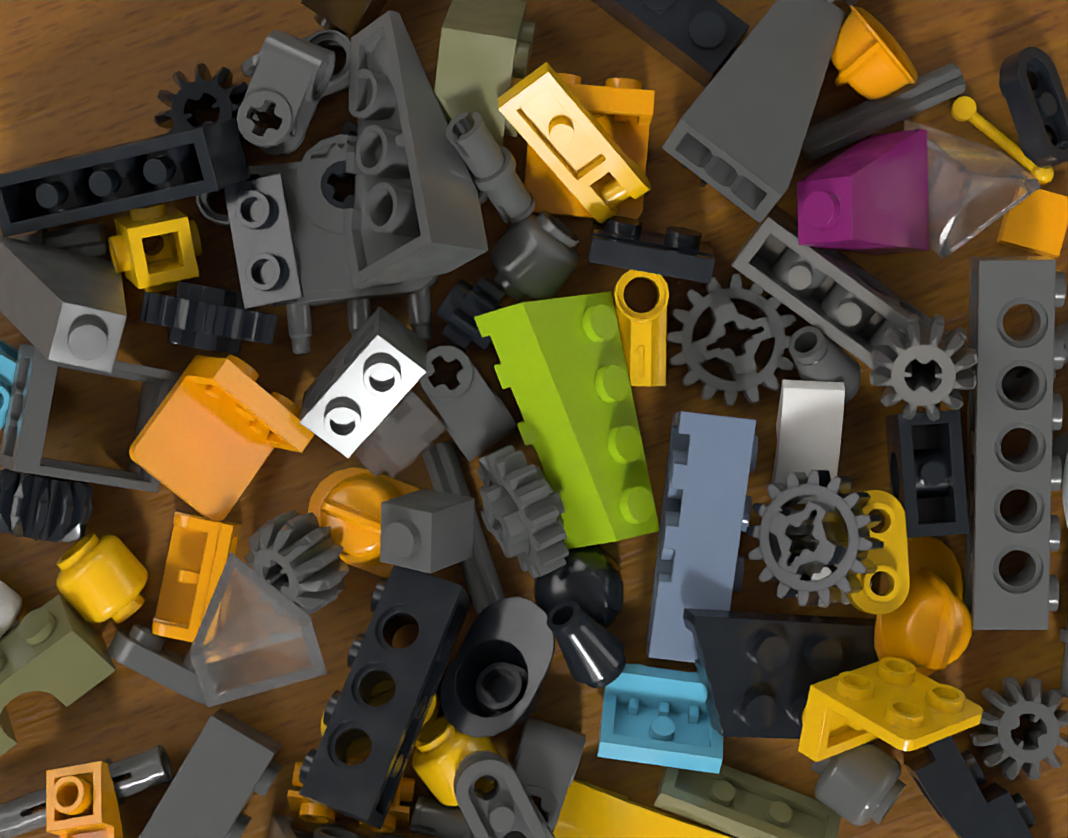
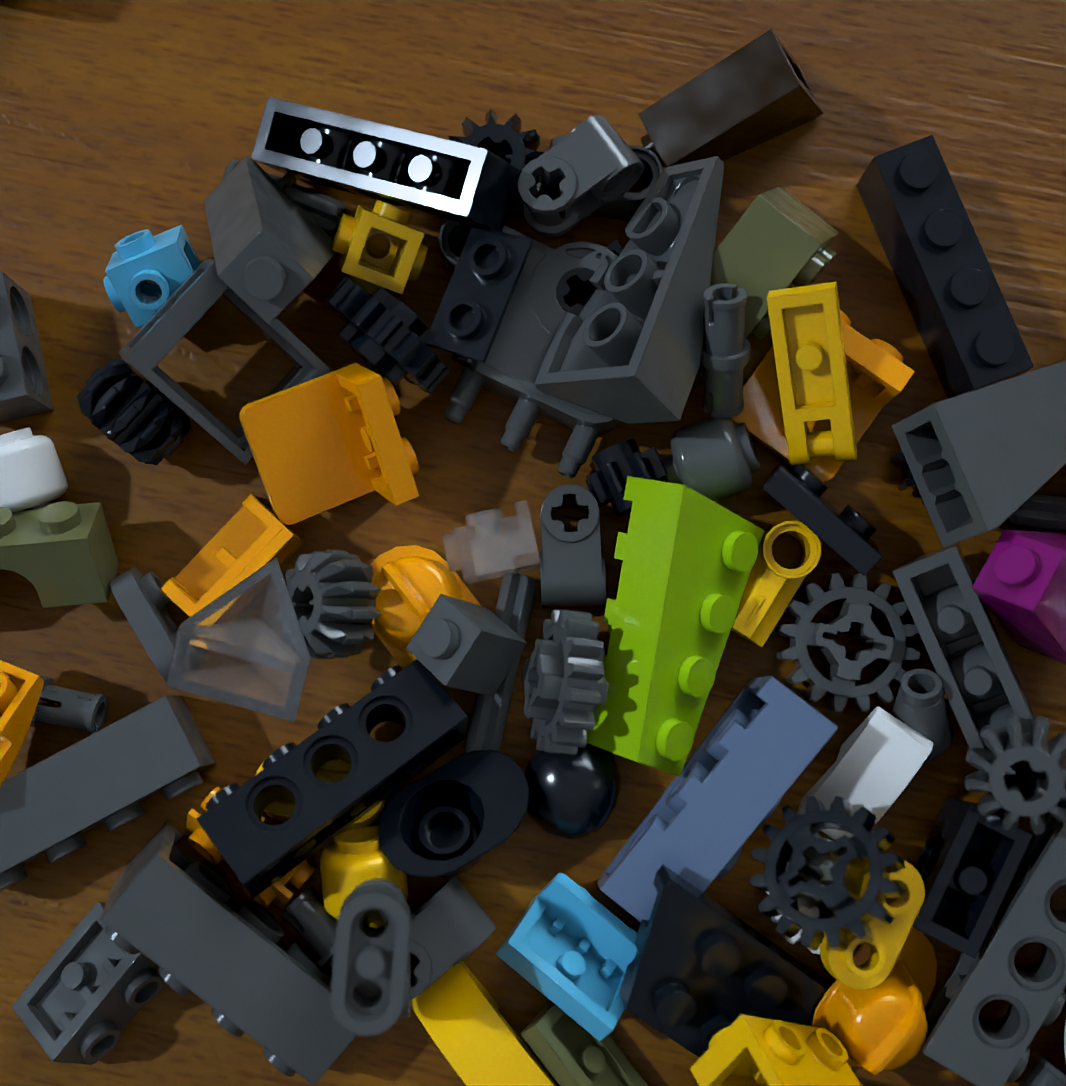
camera: 30 degrees right, 5 degrees down
(101, 579) = (148, 513): yellow head -> none
(364, 382) = (490, 477): brick -> none
(588, 648) = (548, 844): black cone -> none

